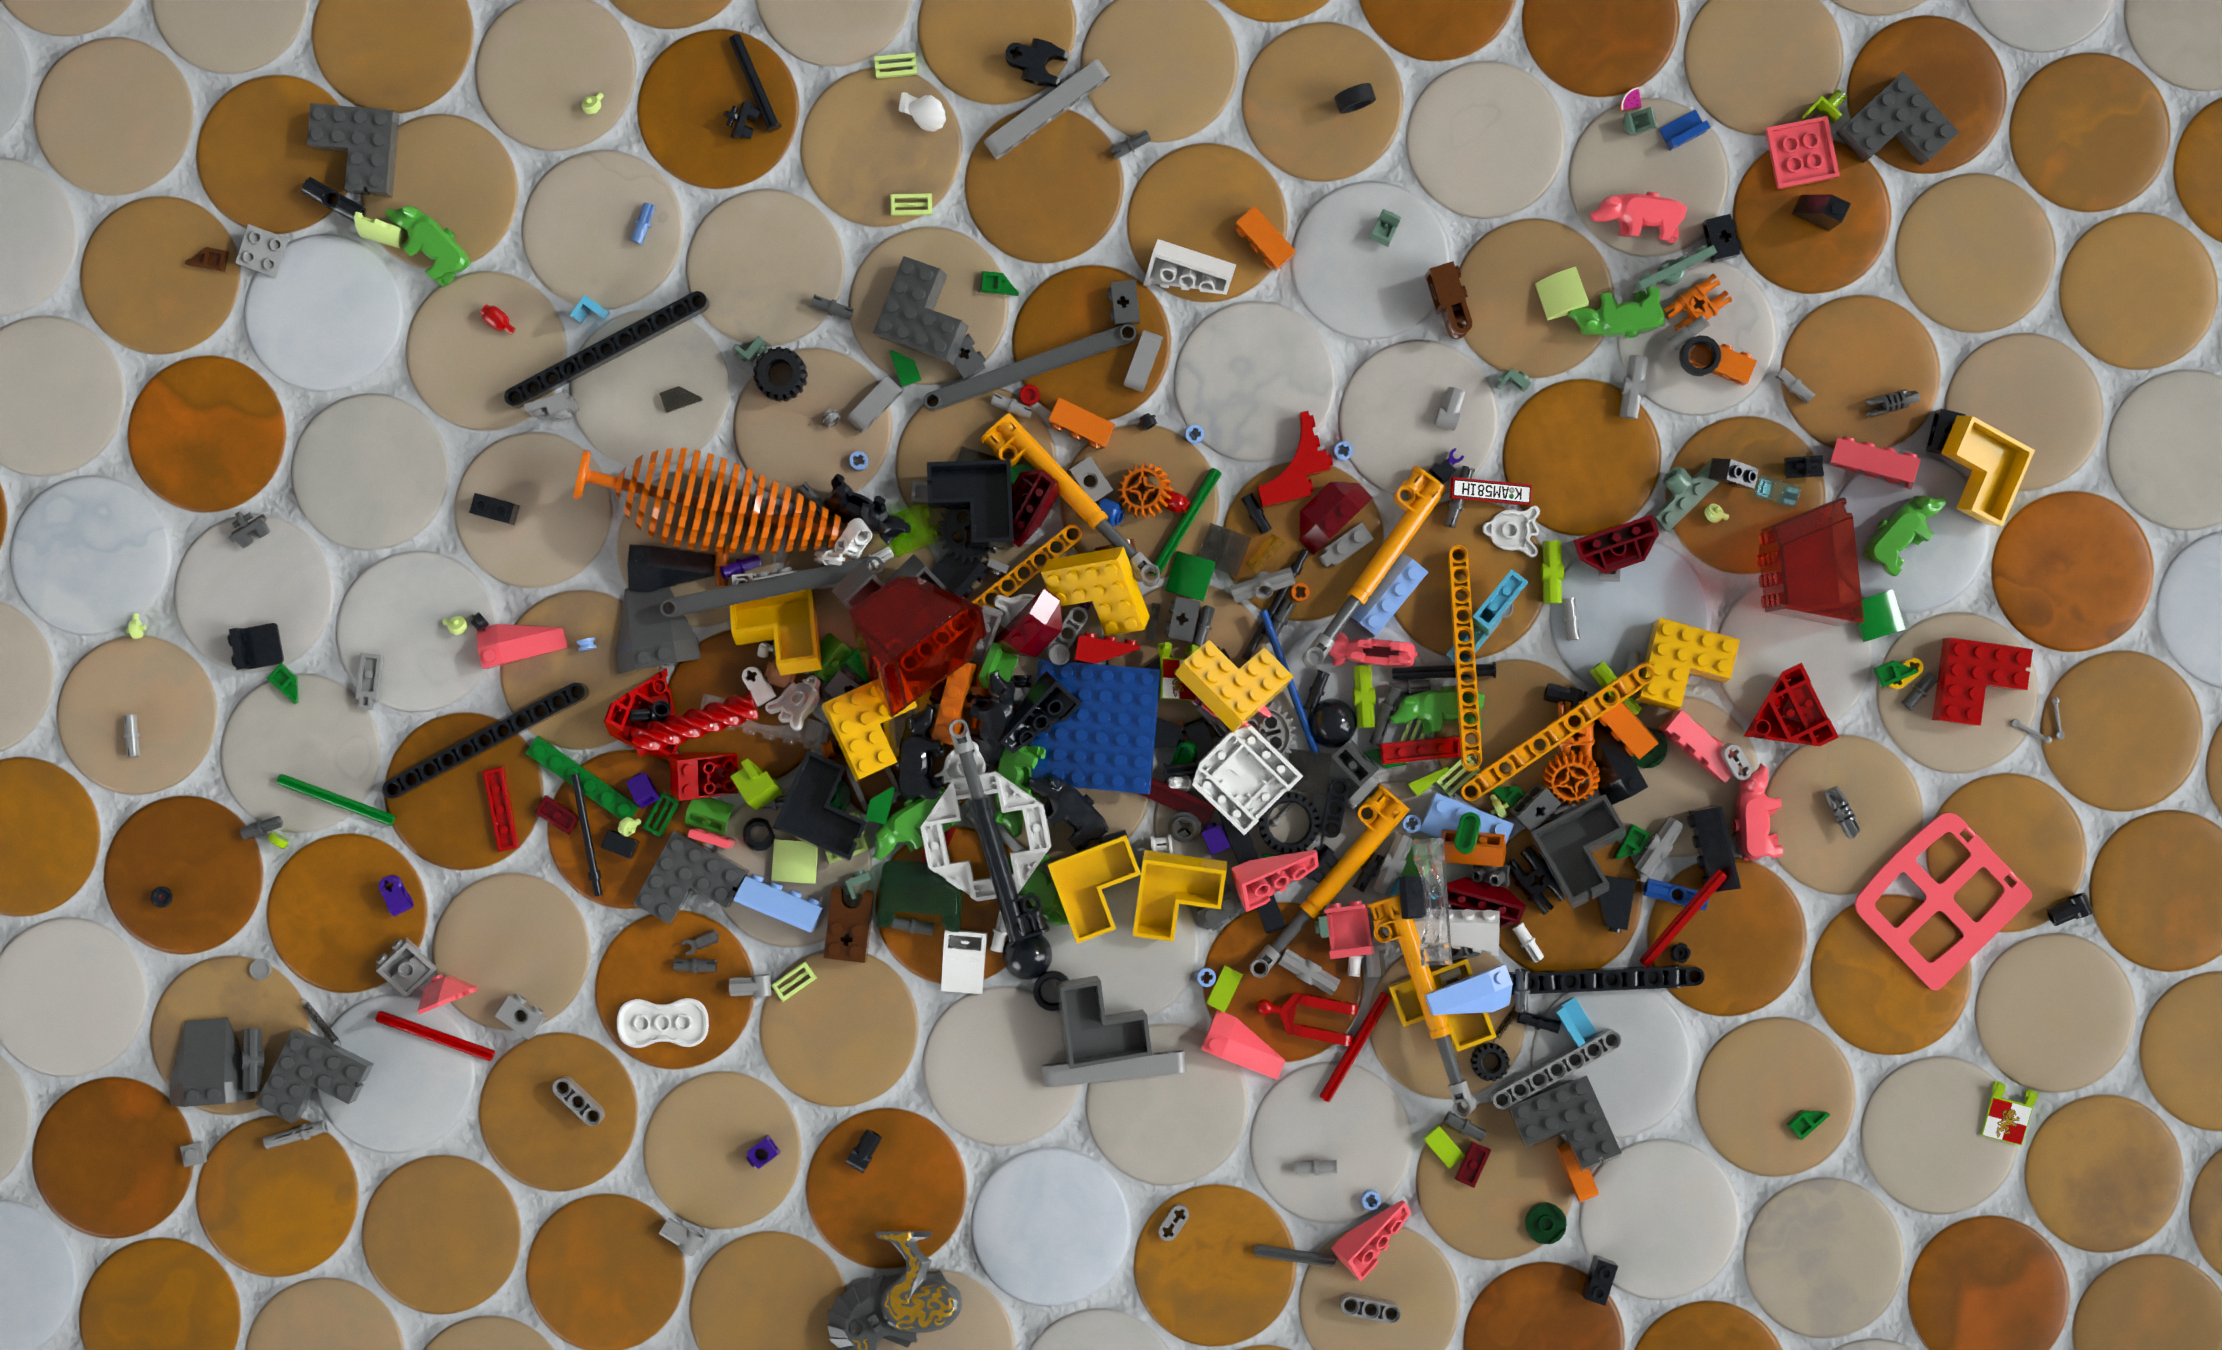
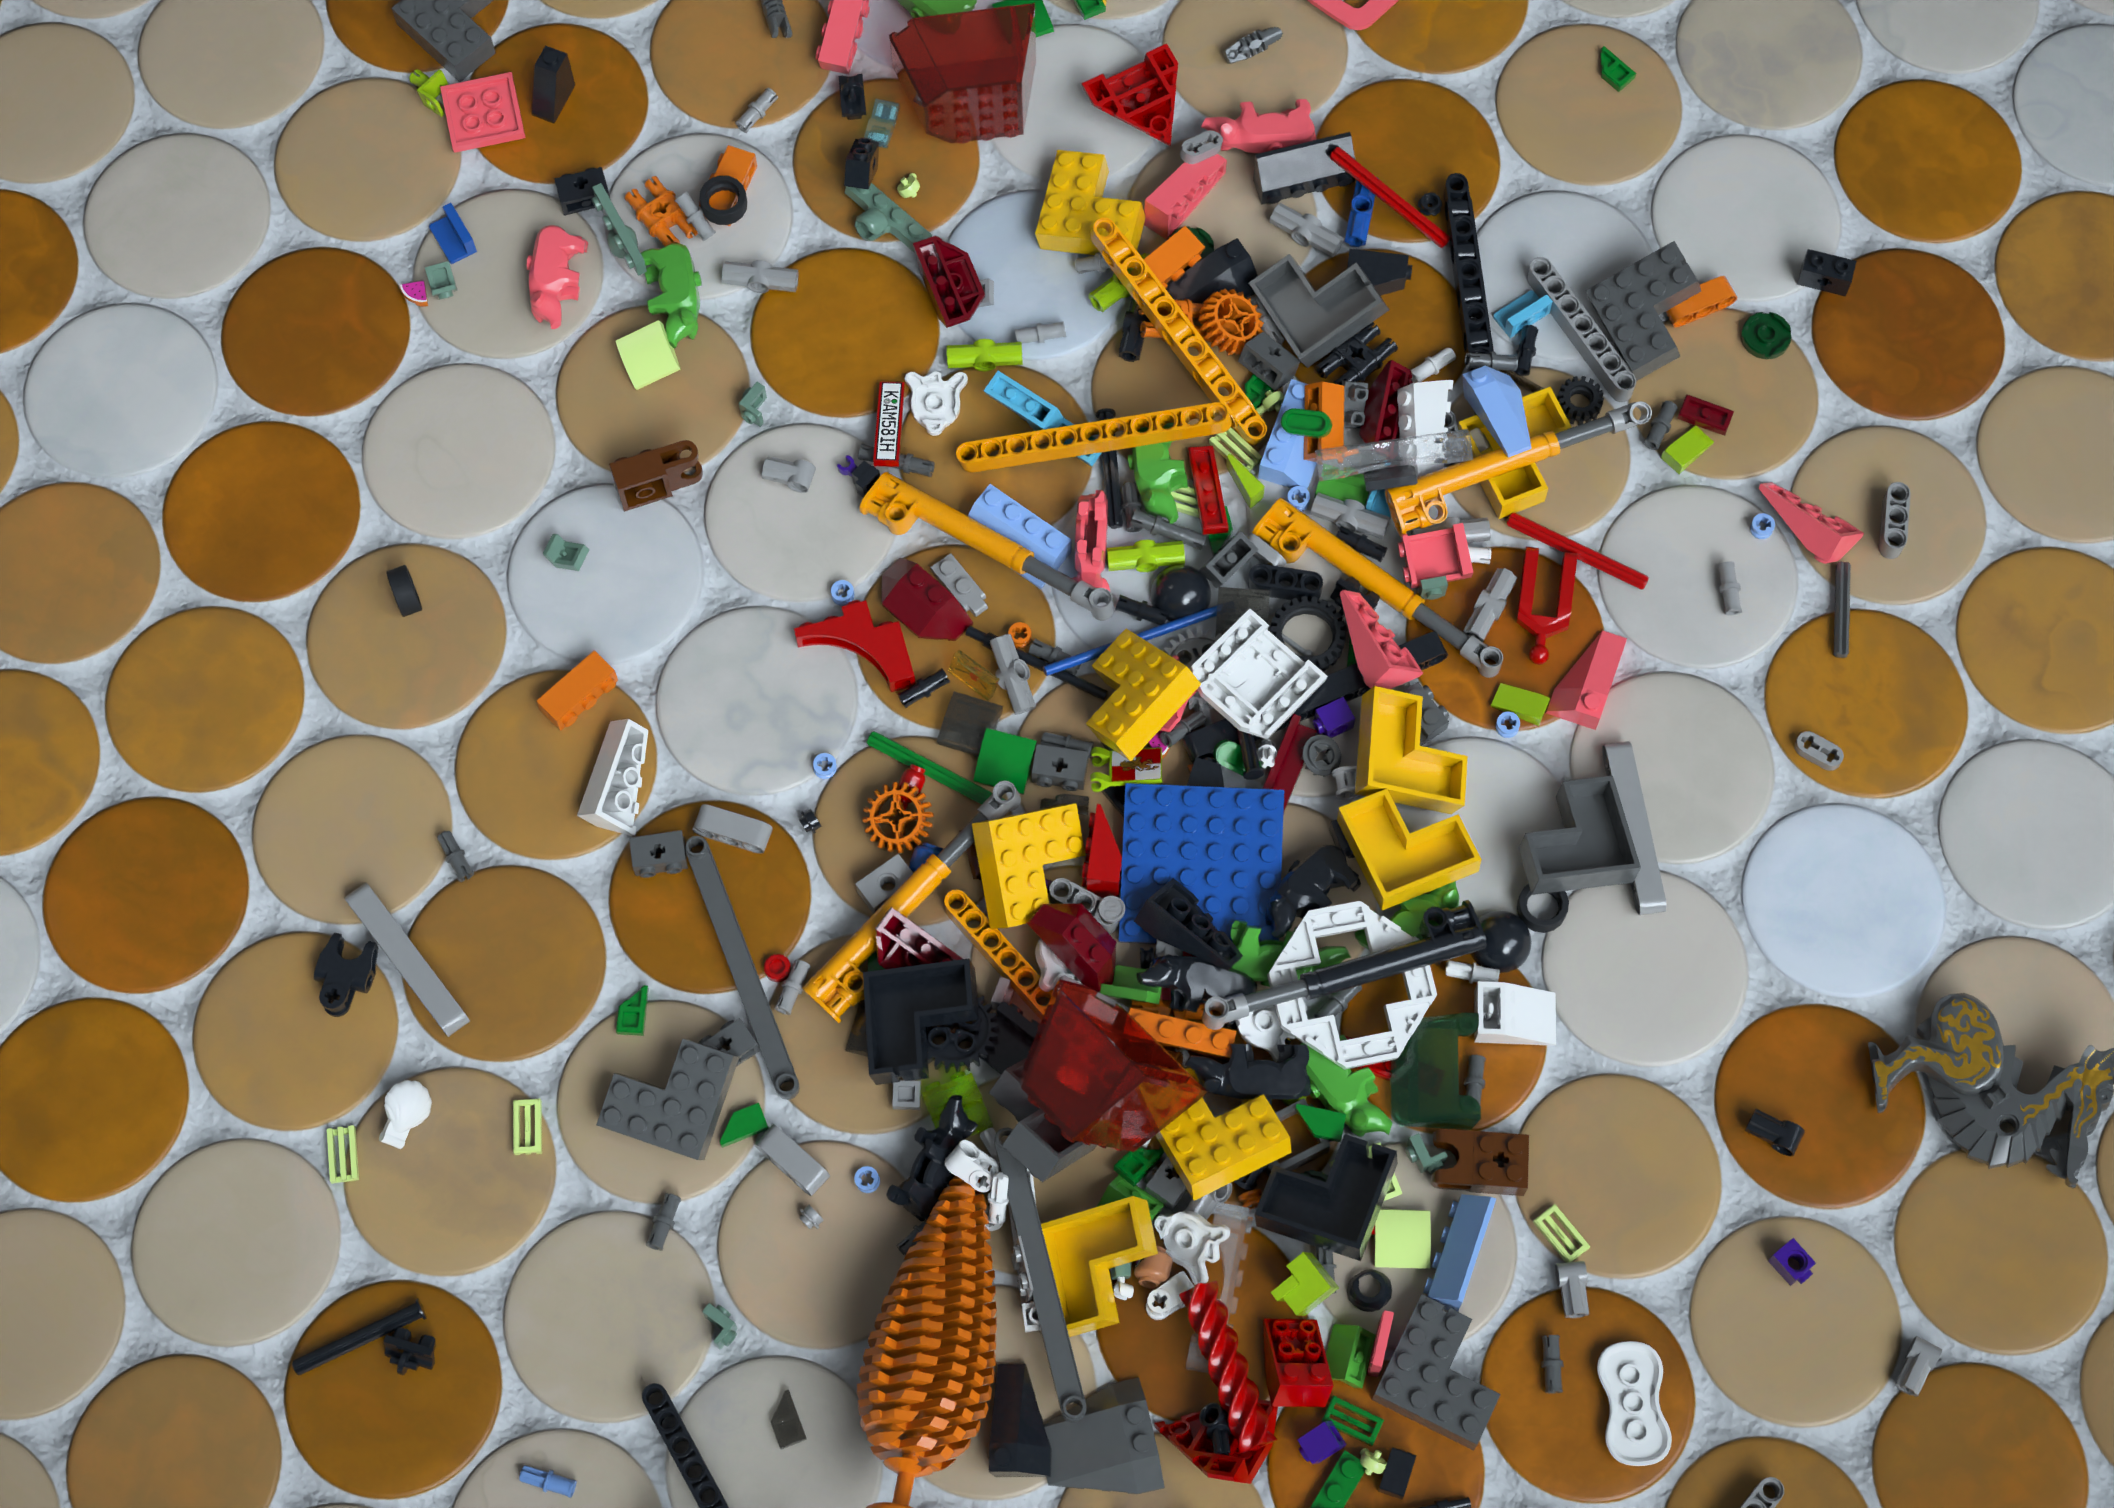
camera: 90 degrees left, 20 degrees down
(702, 941) = (1519, 1357): flat silver bar -> none
(722, 559) = (1013, 1352): orange axle -> none
(740, 566) = (1013, 1326): dark purple axle -> none
(772, 358) = (748, 1260): black tyre -> none
(1081, 424) = (813, 900): orange brick -> none
(1632, 842) = (1306, 258): green tile -> none

